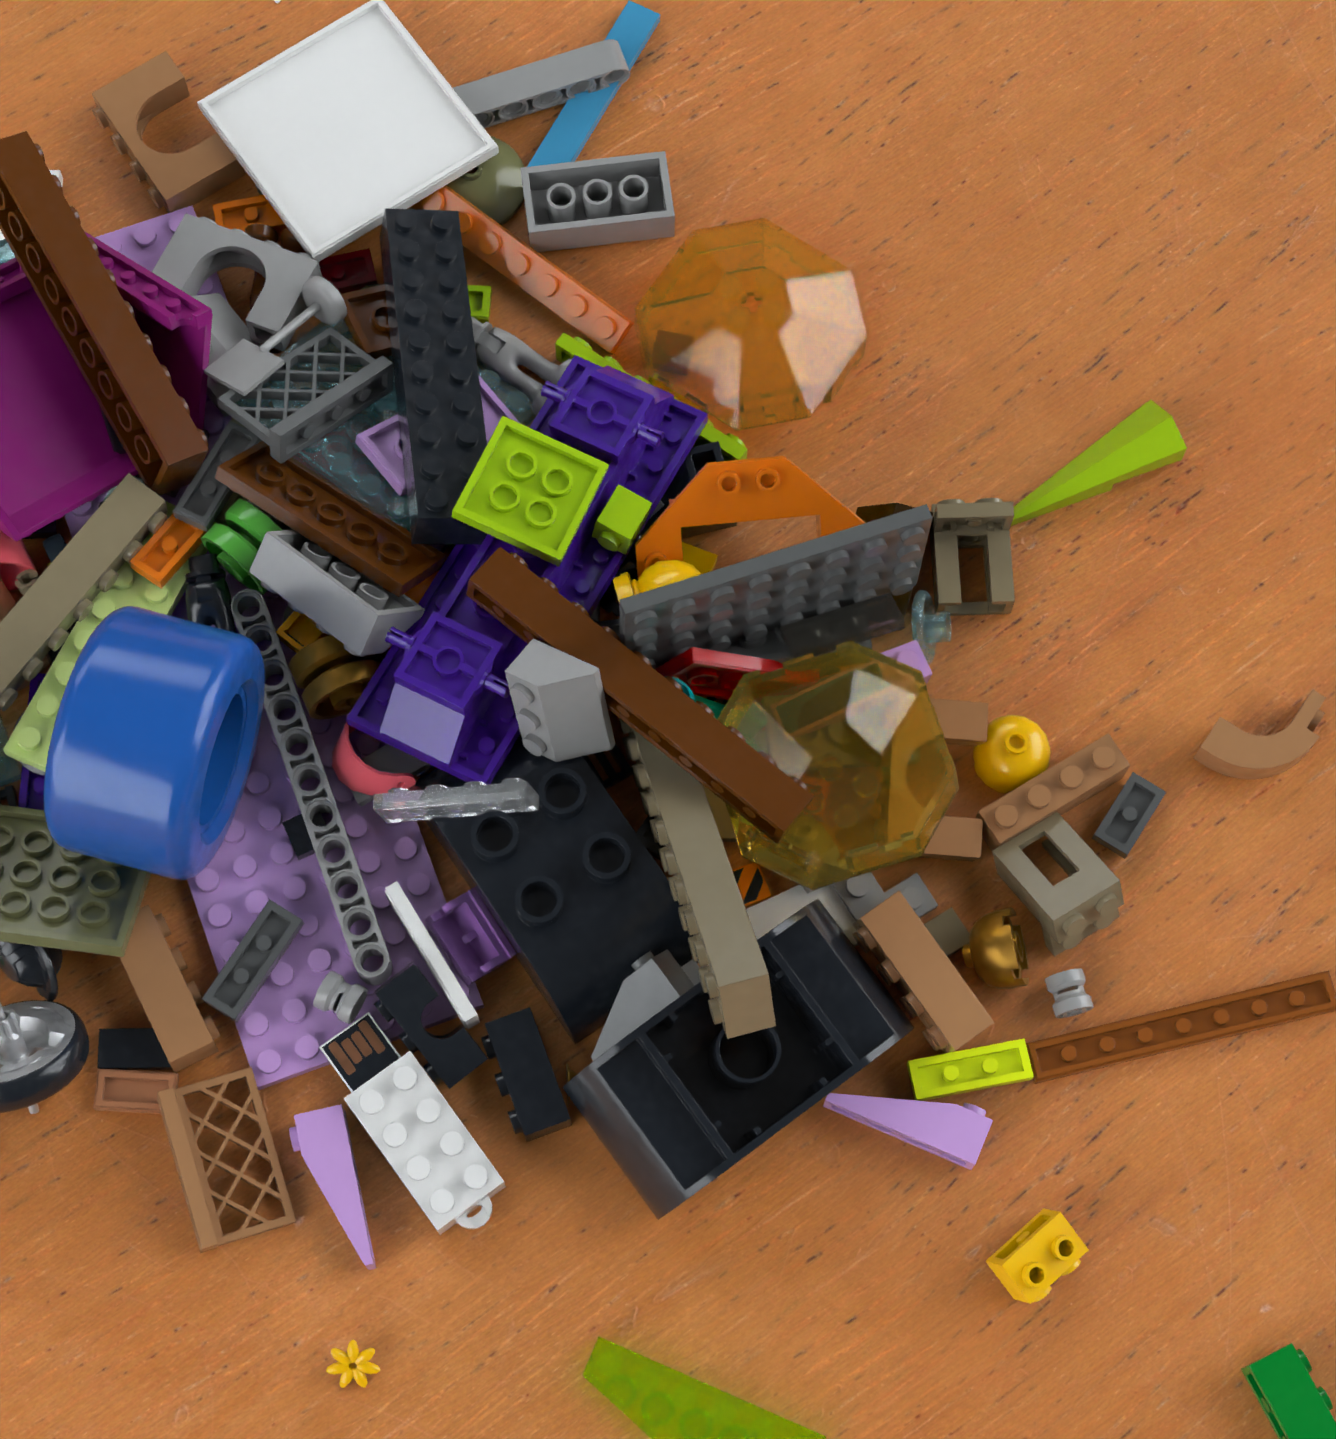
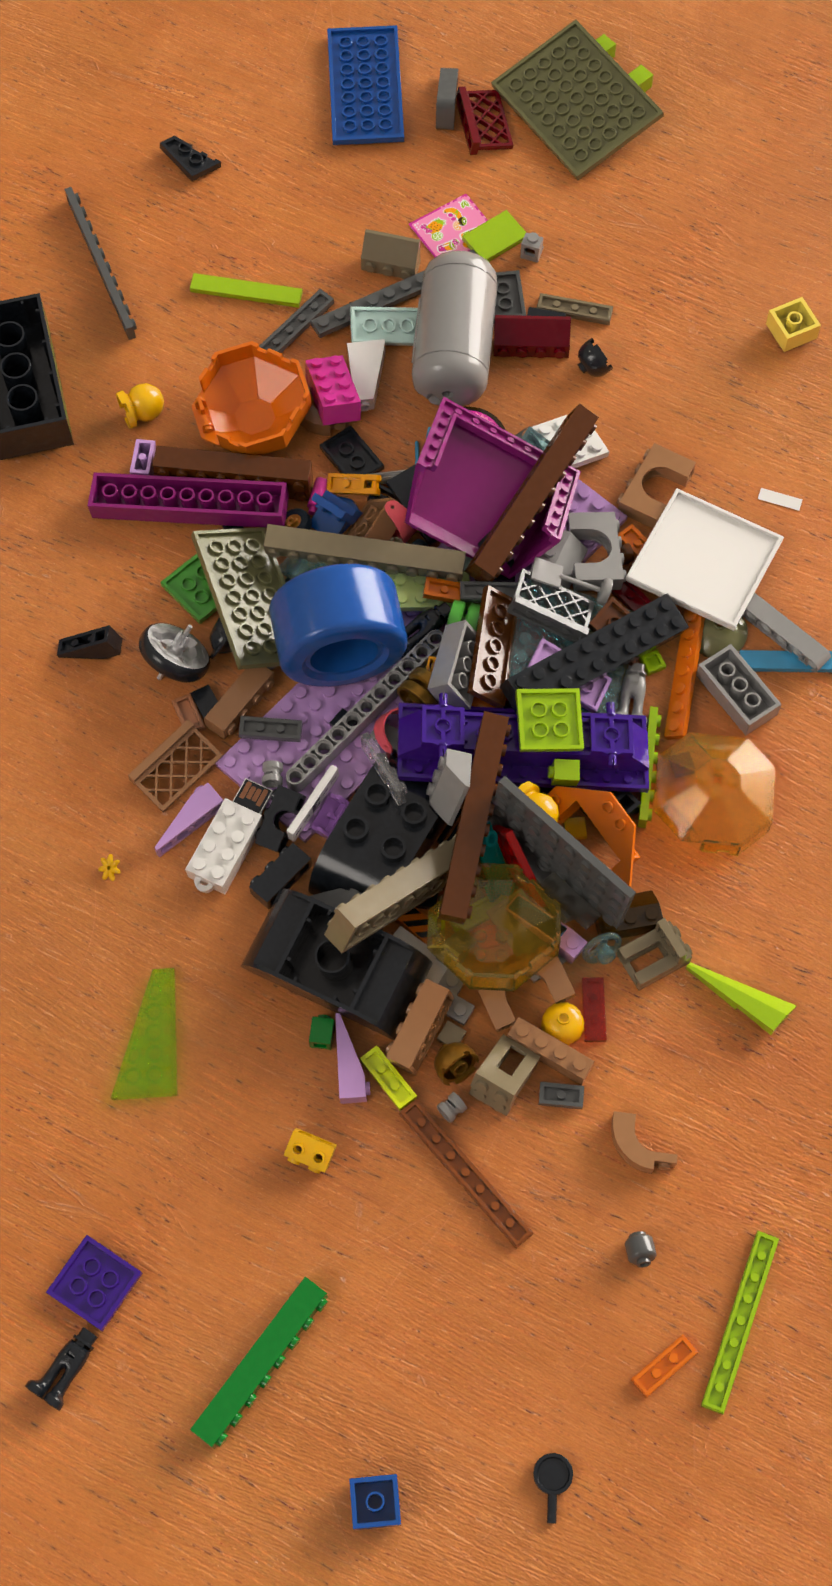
camera: 65 degrees right, 5 degrees down
(840, 1139) = (322, 1032): none -> green brick
(1009, 693) = (594, 1009): none -> clear red tile

